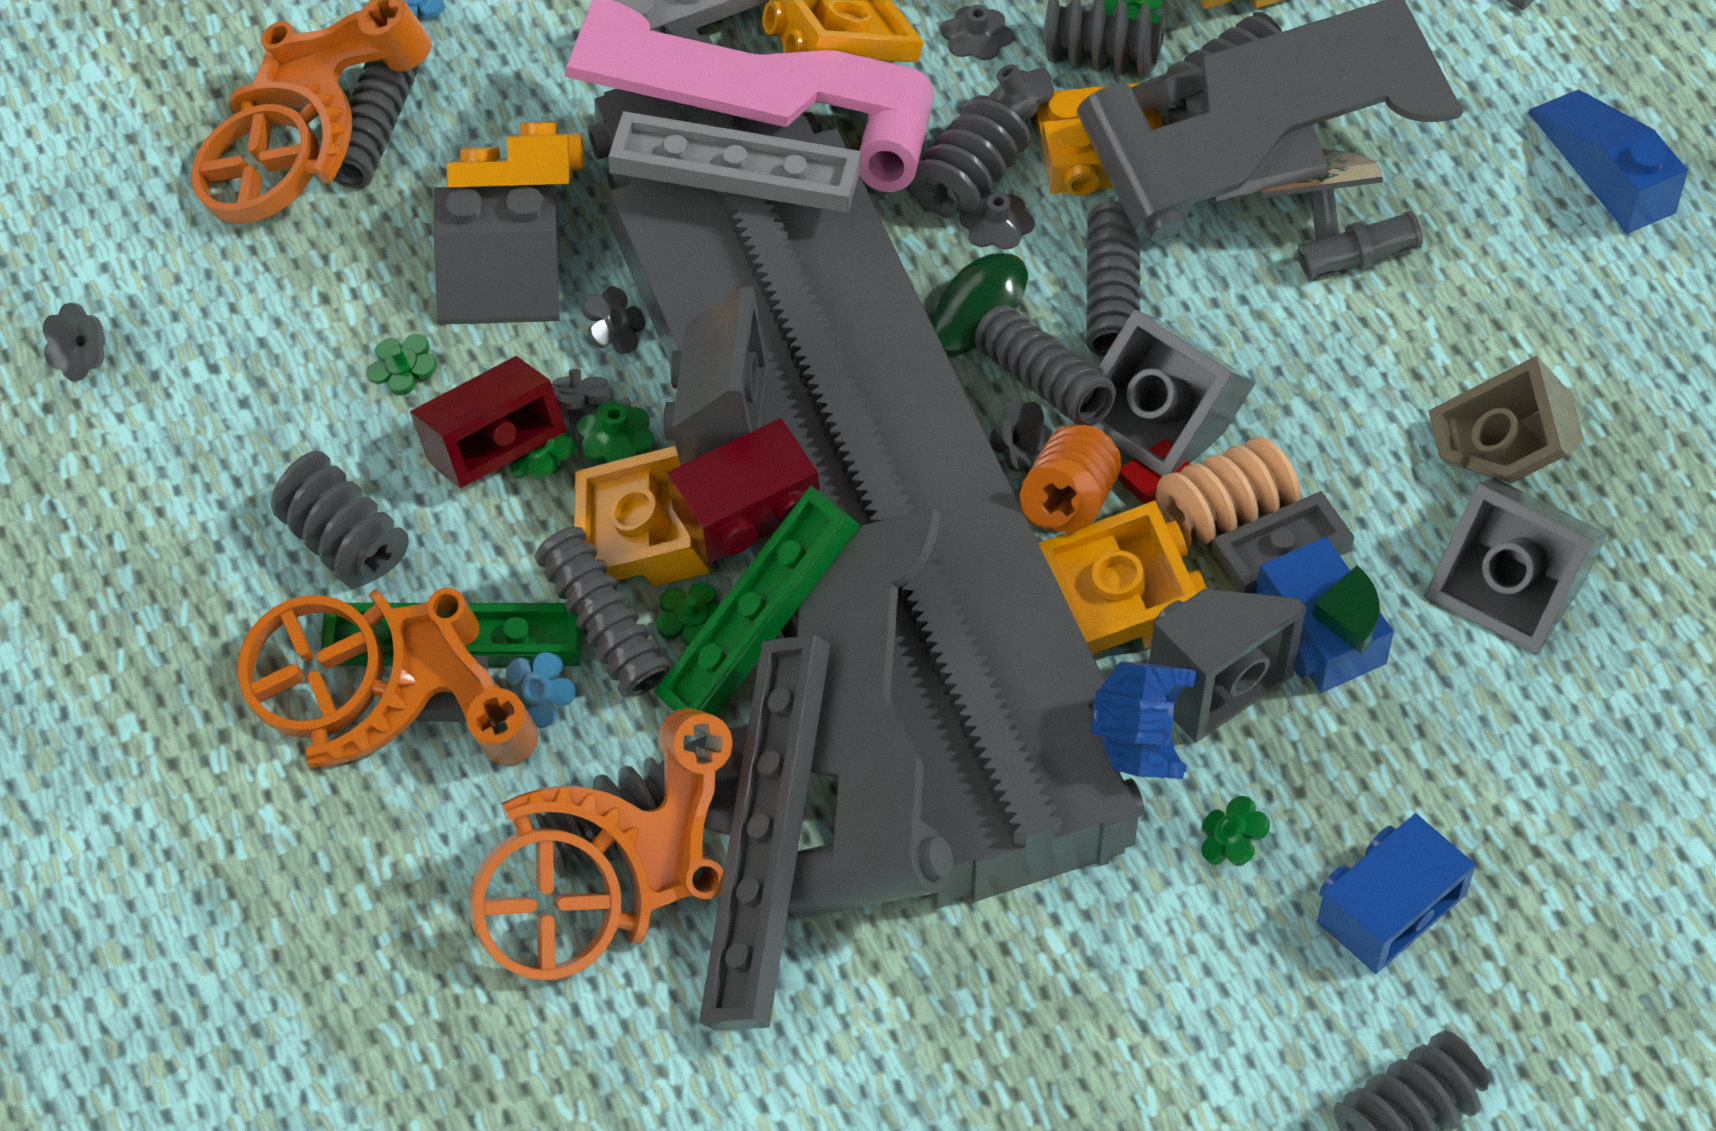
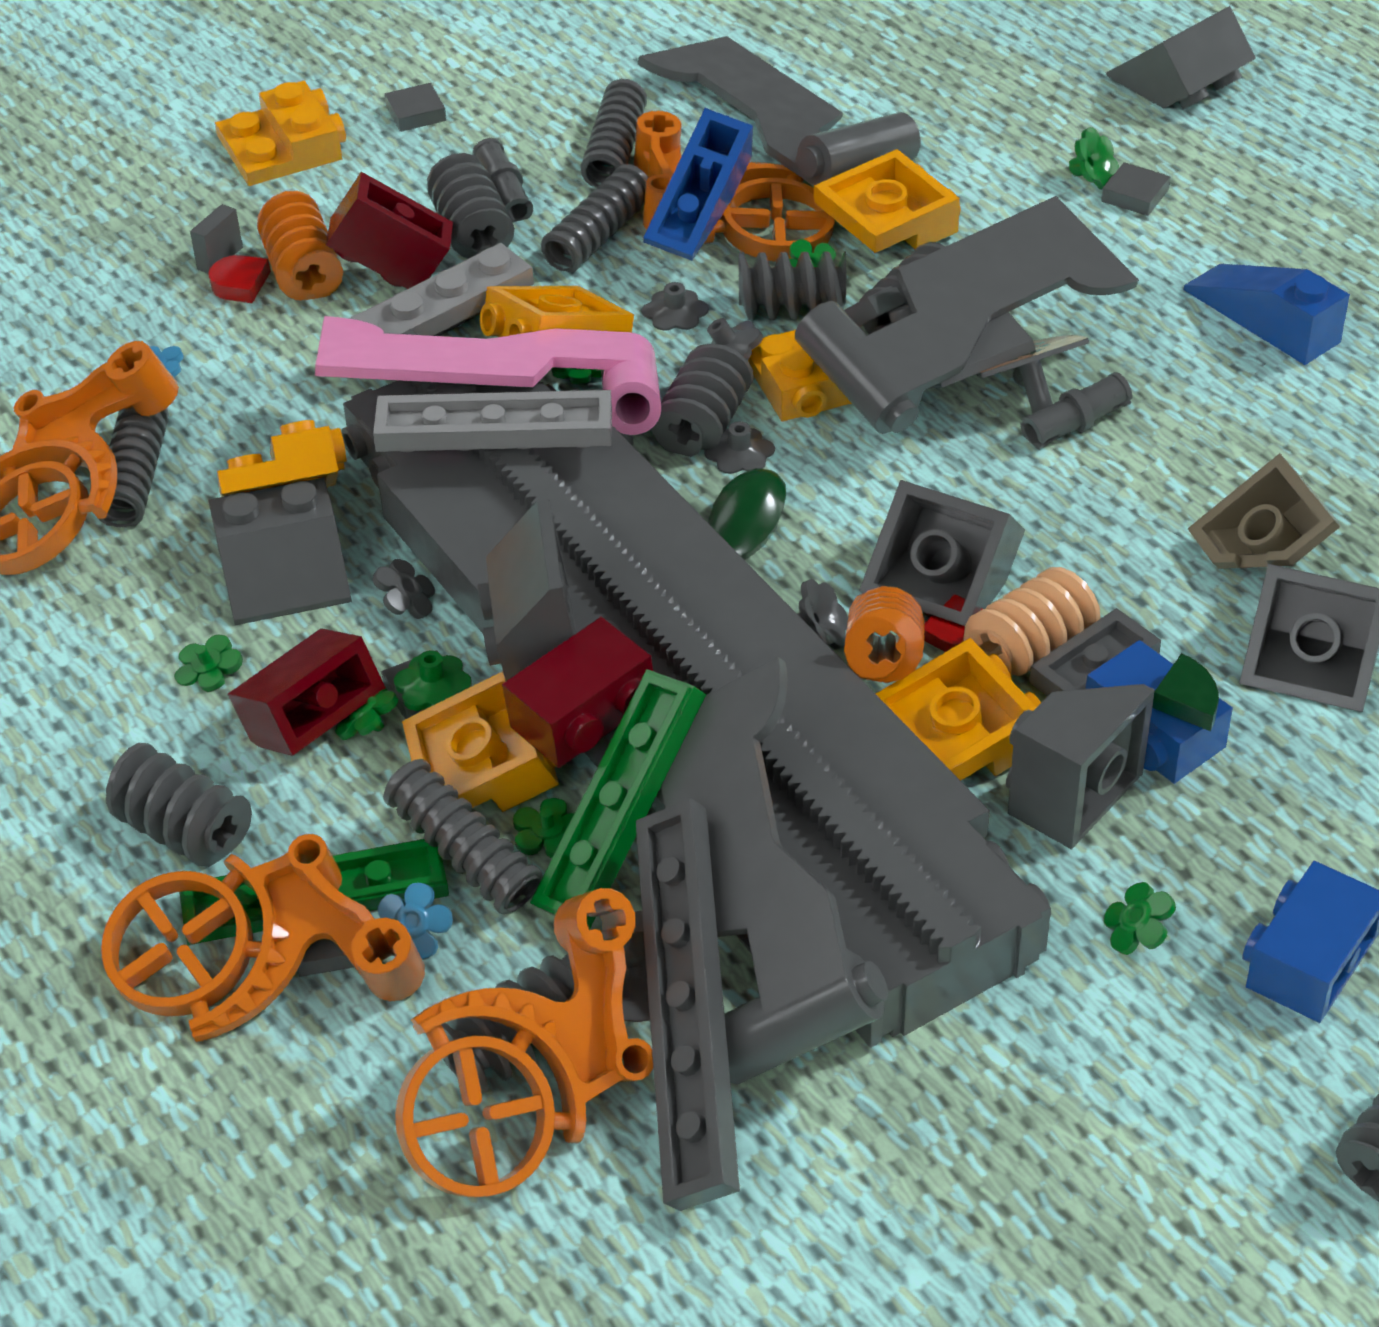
camera: 10 degrees left, 10 degrees down
(576, 393) = (389, 655): dark grey plant -> none
(1045, 366) = (827, 549): dark grey piece -> none
(1111, 274) = (860, 469): dark grey piece -> none
(1137, 717) = (1026, 815): blue hair -> none

